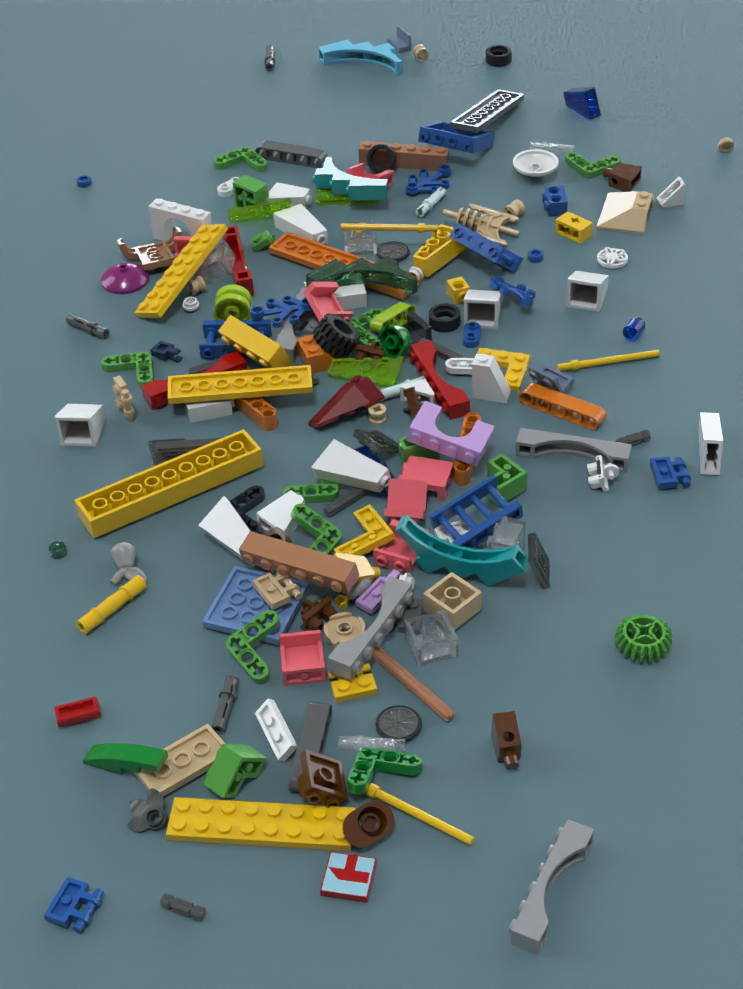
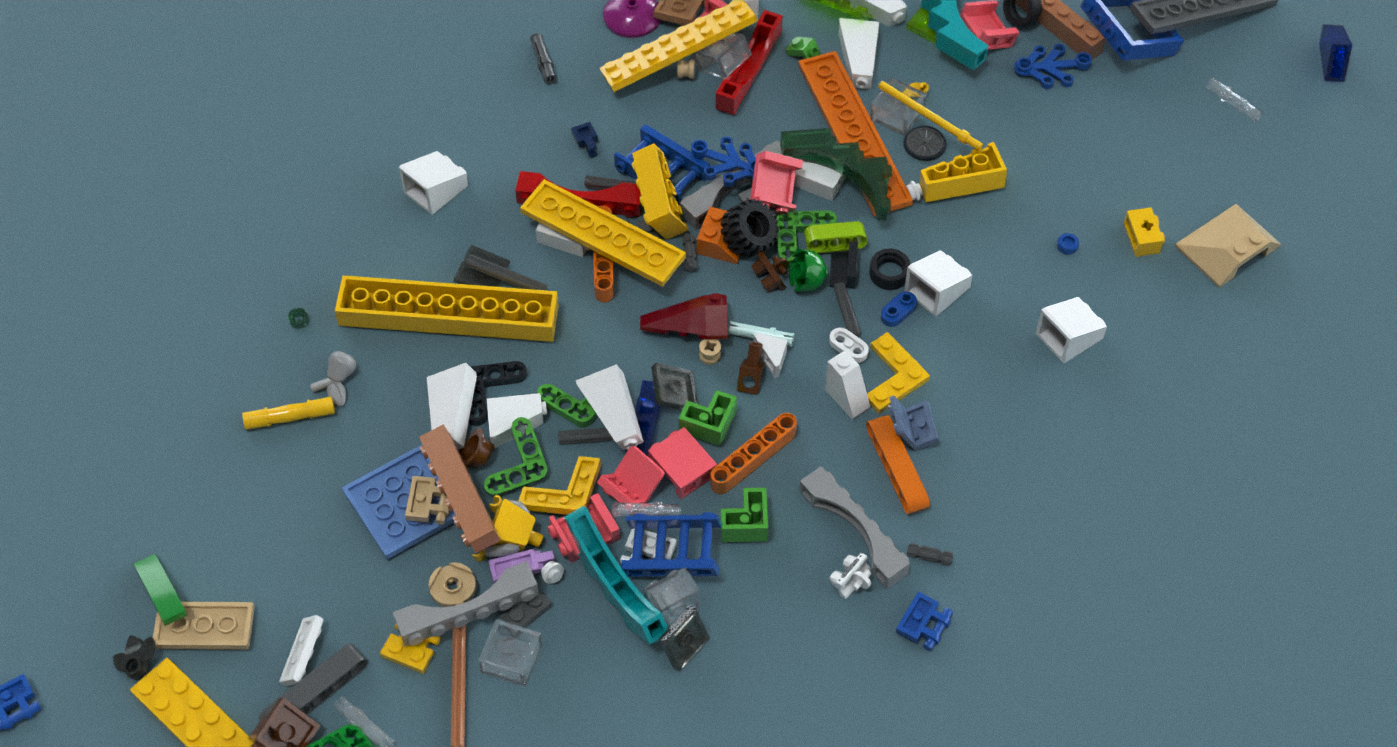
camera: 35 degrees right, 15 degrees up
(77, 711) = (168, 510): red plate -> none
(115, 363) = (548, 136): bright green beam -> none
(124, 398) = (490, 178): tan plate -> none
(190, 304) = (661, 90): white plate -> none
(227, 696) = (265, 608): dark grey pin -> none
(231, 767) = (230, 664): bright green brick -> none
(232, 301) = (687, 122): lime wheel -> none
(246, 642) = (354, 540): bright green beam -> none
(302, 658) = (390, 589): coral panel -> none
(314, 611) = (441, 547): reddish brown hips -> none
(382, 371) = (752, 293): clear neon green wing -> none
(398, 723) = (408, 720): dark grey wheel -> none
(422, 515) = (649, 509): none -> clear pin
(427, 204) = (1018, 100): light aqua pin -> none
(452, 399) = (796, 381): red arch -> none
(455, 597) = (567, 625): tan brick -> none
(457, 289) = (936, 239): yellow brick -> none
(465, 448) = (737, 461): lavender arch -> none
(486, 247) = (1022, 202): blue fence -> none
(488, 224) = (1052, 169): tan bar -> none
(515, 208) = (1102, 166): tan wheel -> none
(526, 298) = (990, 260): blue plant -> none
(535, 163) = (1186, 113): white dish -> none
(555, 200) = (1160, 180): blue brick -> none
(575, 364) = (965, 419): yellow bar -> none
(588, 169) = (1251, 154): bright green beam -> none
(612, 257) = (1147, 300): white wheel -> none
(623, 176) = (1273, 192): reddish brown torso -> none
(634, 328) = (1070, 413): clear blue brick -> none
(674, 194) = (1301, 254): white slope -> none
(710, 443) = (997, 614): white slope -> none

